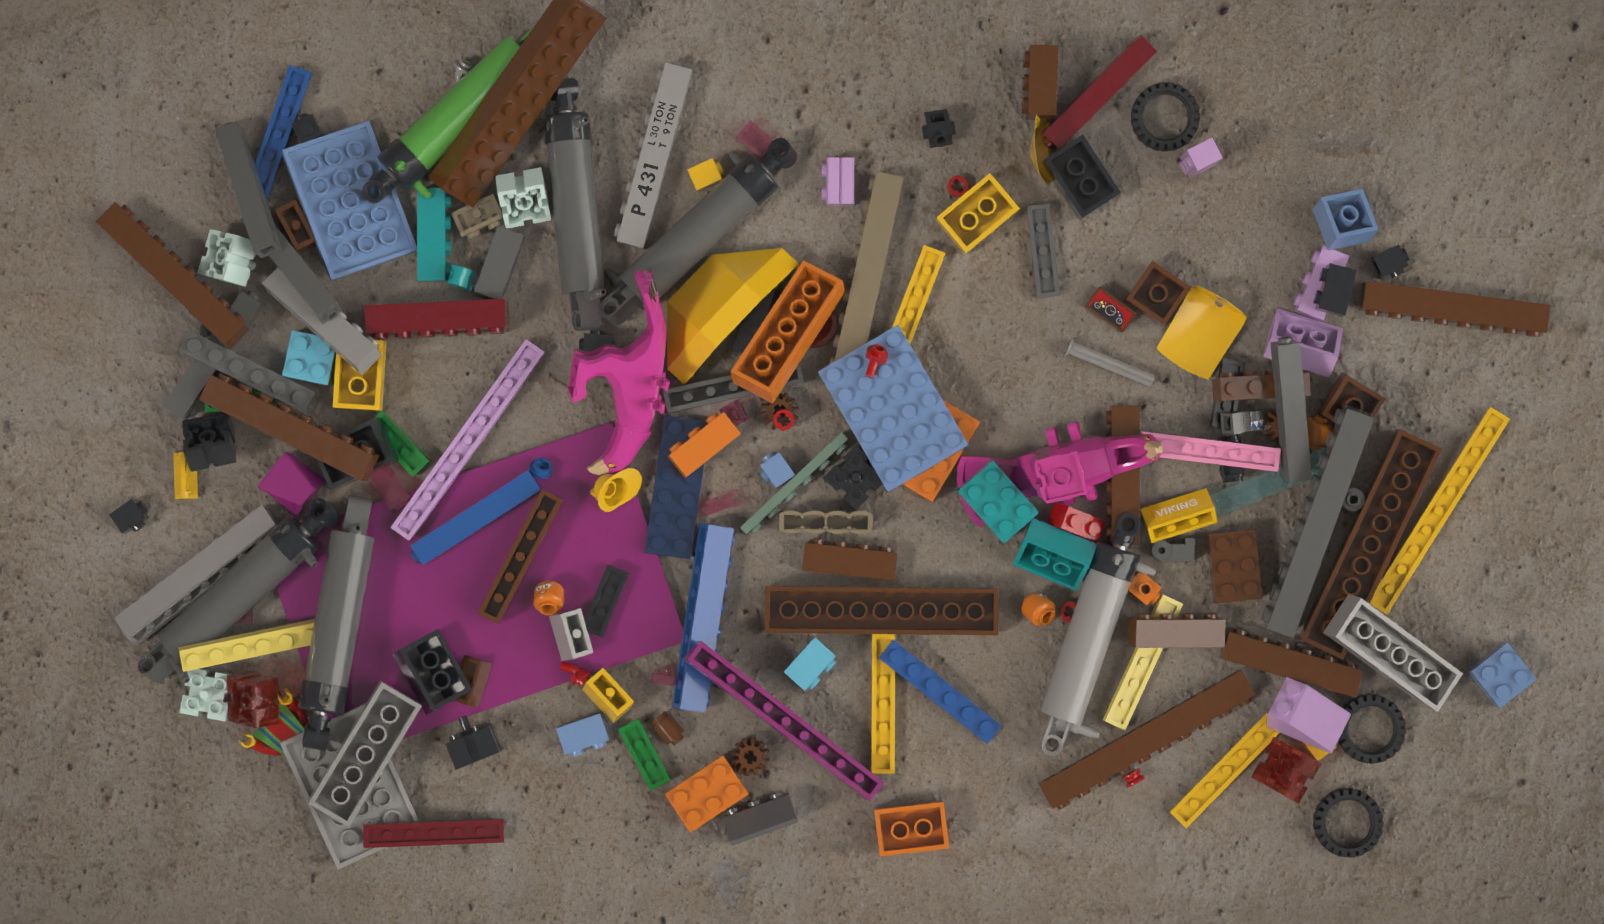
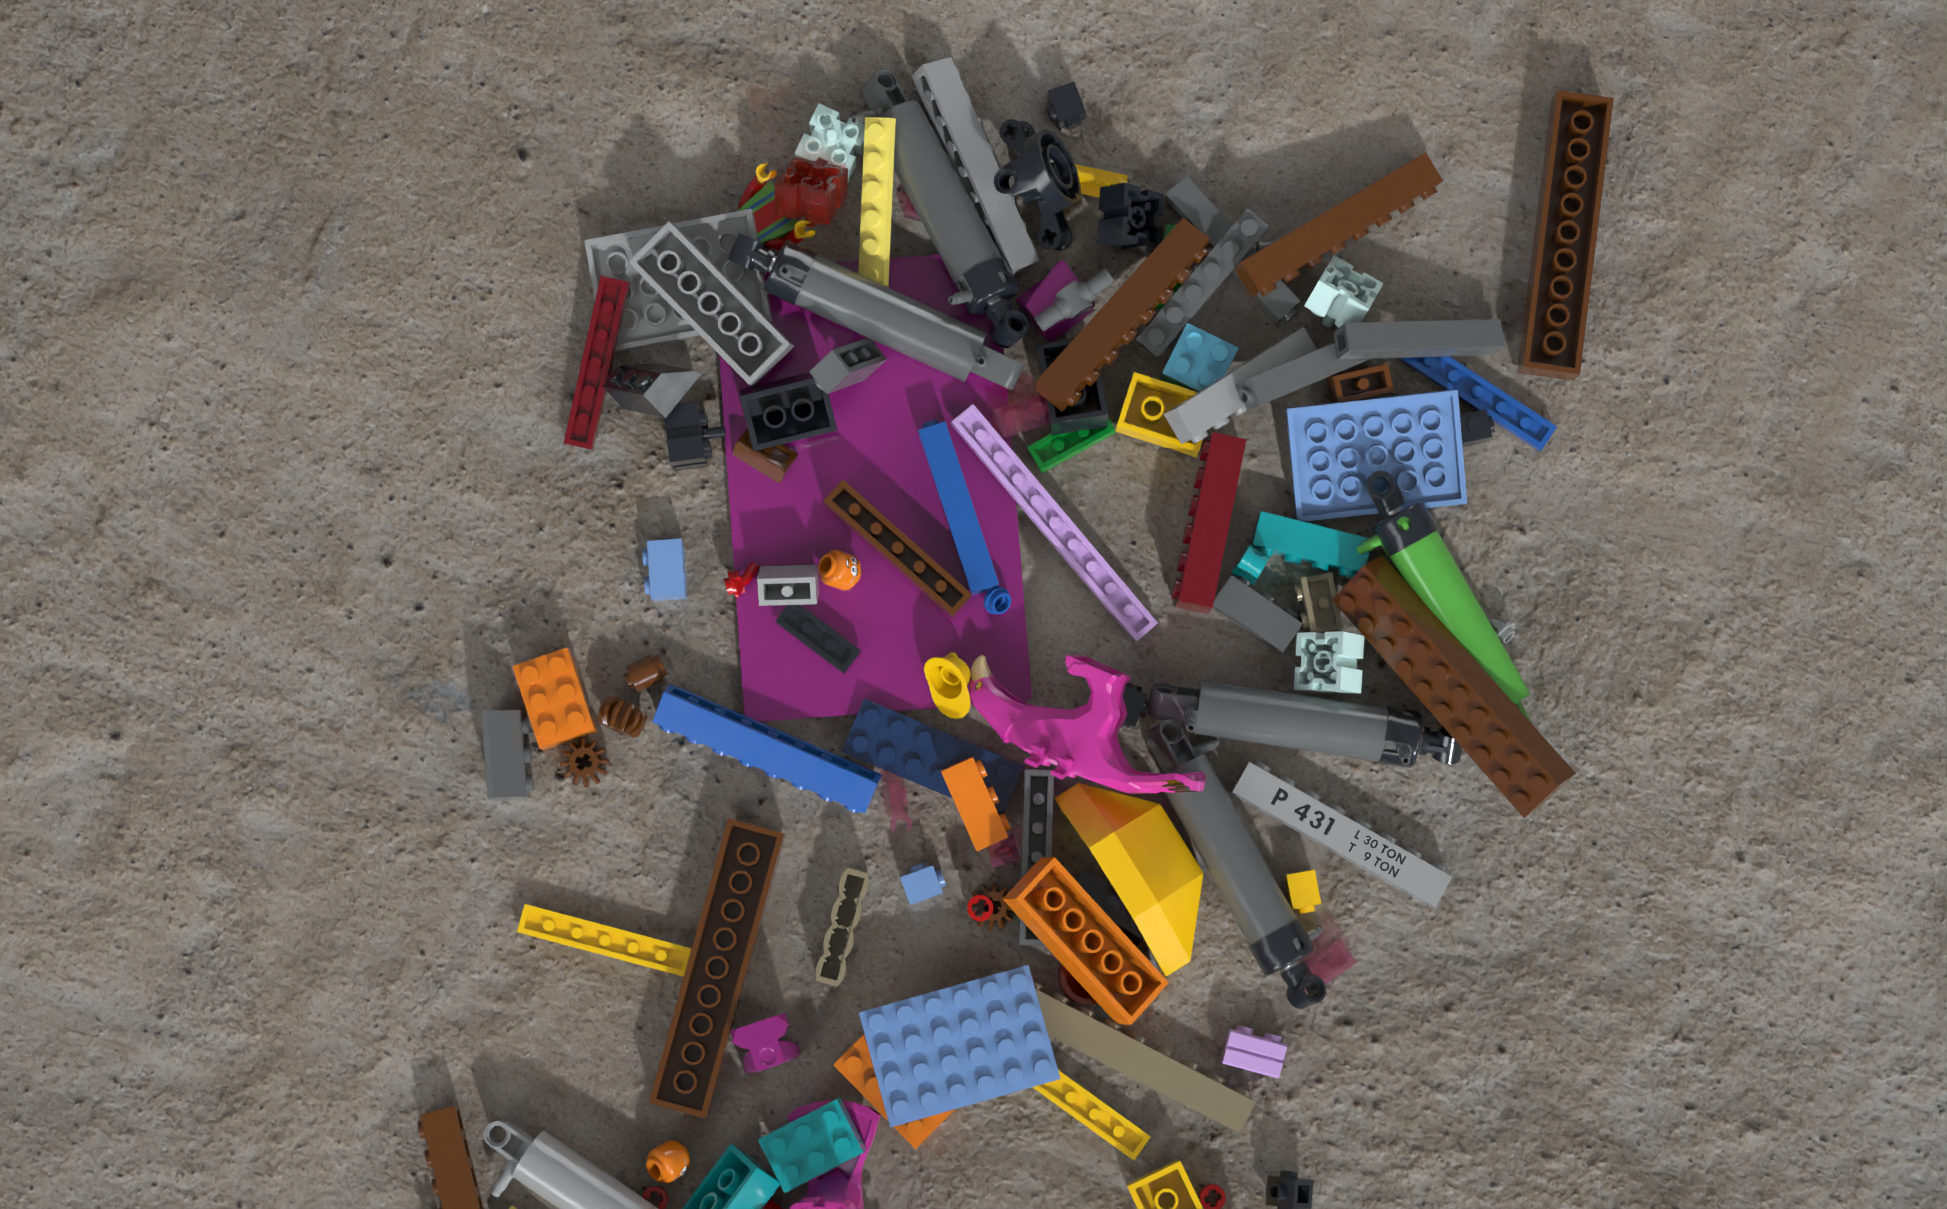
camera: 100 degrees right, 5 degrees down
(133, 94) = (1565, 235): none -> reddish brown brick
(193, 518) = (1041, 174): none -> black piece
(288, 468) = (1074, 300): none -> dark grey pin
(386, 632) = (847, 365): none -> brick
(442, 784) = (649, 387): none -> black slope
(608, 695) = (704, 611): yellow brick -> none
(644, 754) = (622, 636): green plate -> none
(663, 677) = (708, 682): clear pink plate -> none
(707, 737) = (622, 717): none -> reddish brown gear
(783, 720) = (615, 813): magenta brick -> none
(803, 478) = (892, 891): sand green plate -> none
(810, 663) = (675, 863): medium azure brick -> none
(849, 561) = (788, 944): reddish brown brick -> none
(854, 477) = (887, 976): black brick -> none
(875, 354) = (1027, 1040): red plate -> none
(911, 828) = (444, 935): orange brick -> none
(930, 558) = (765, 1043): none -> magenta piece
(939, 691) = (600, 1013): blue plate -> none

